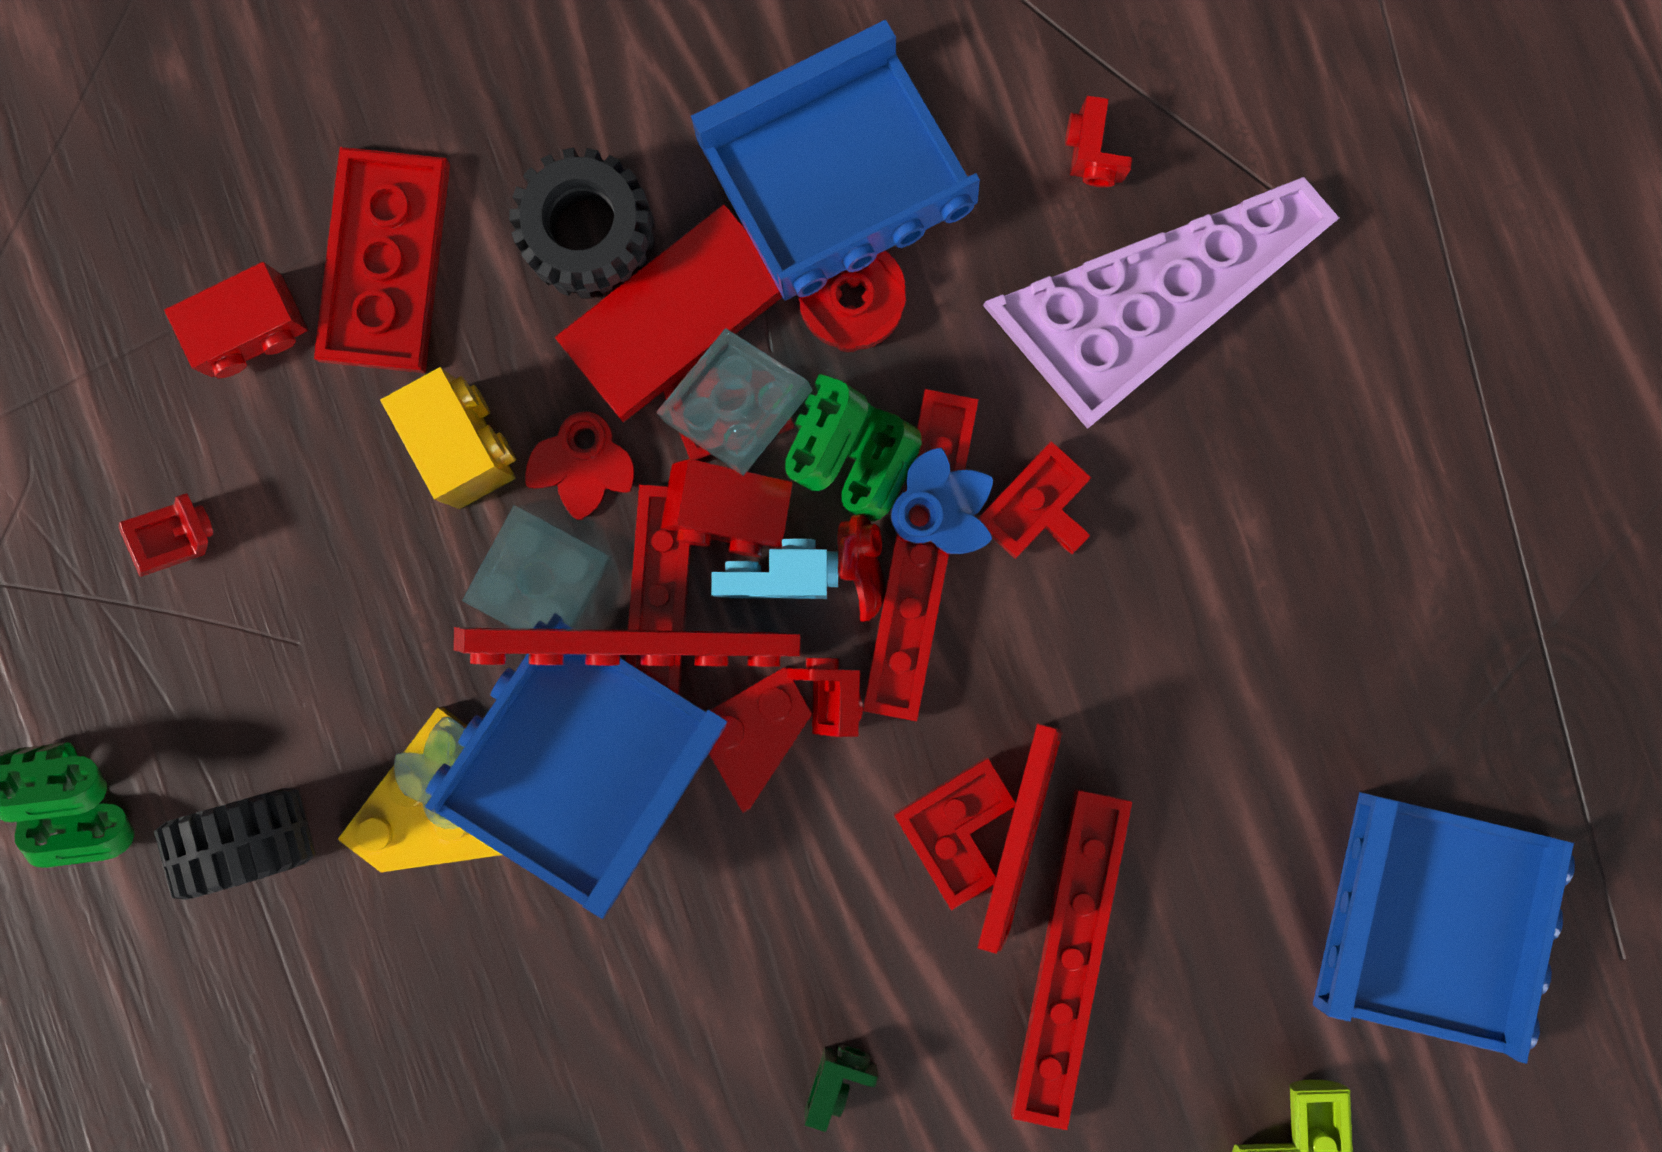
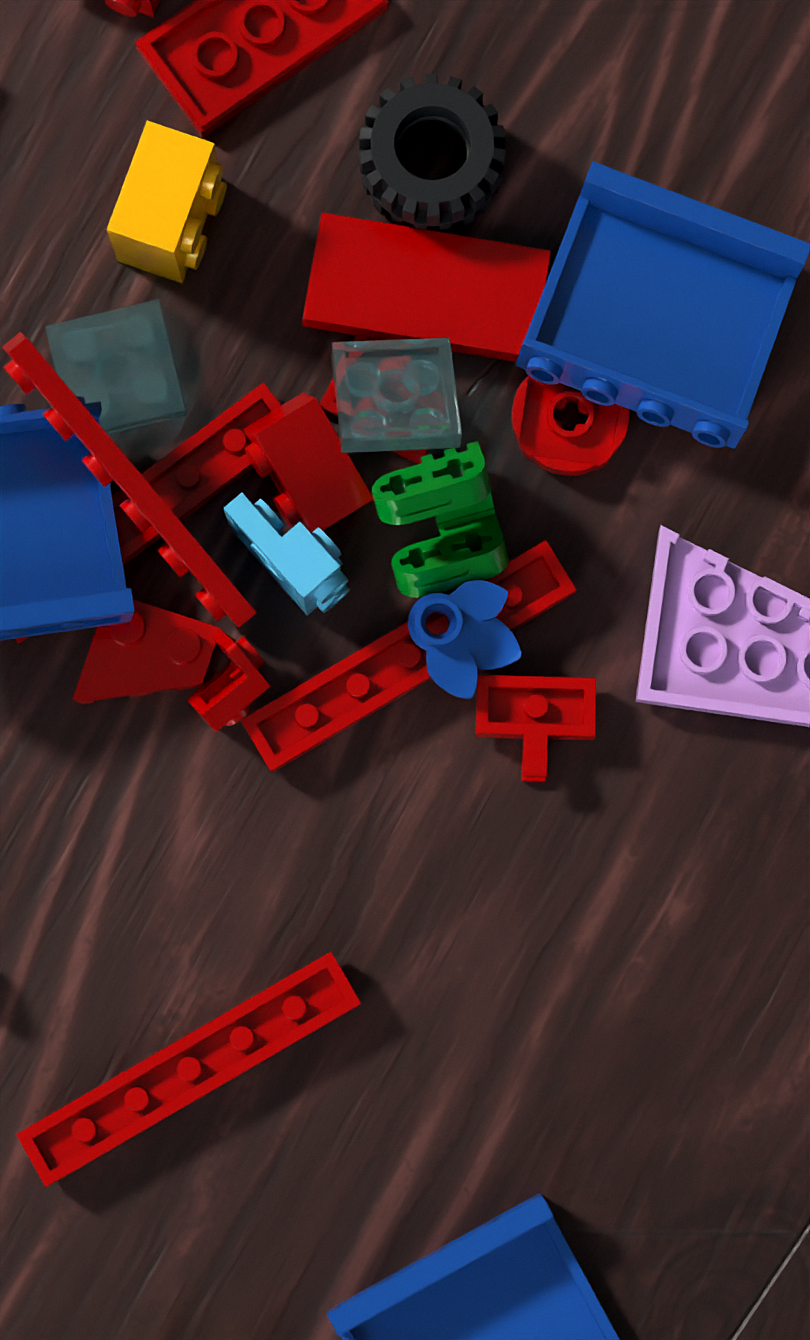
camera: 45 degrees right, 5 degrees down
(579, 472) = (230, 327): red plate -> none
(858, 561) = (358, 607): red plate -> none
(942, 825) = (199, 870): red plate -> none
(1020, 838) = (251, 932): red tile -> none

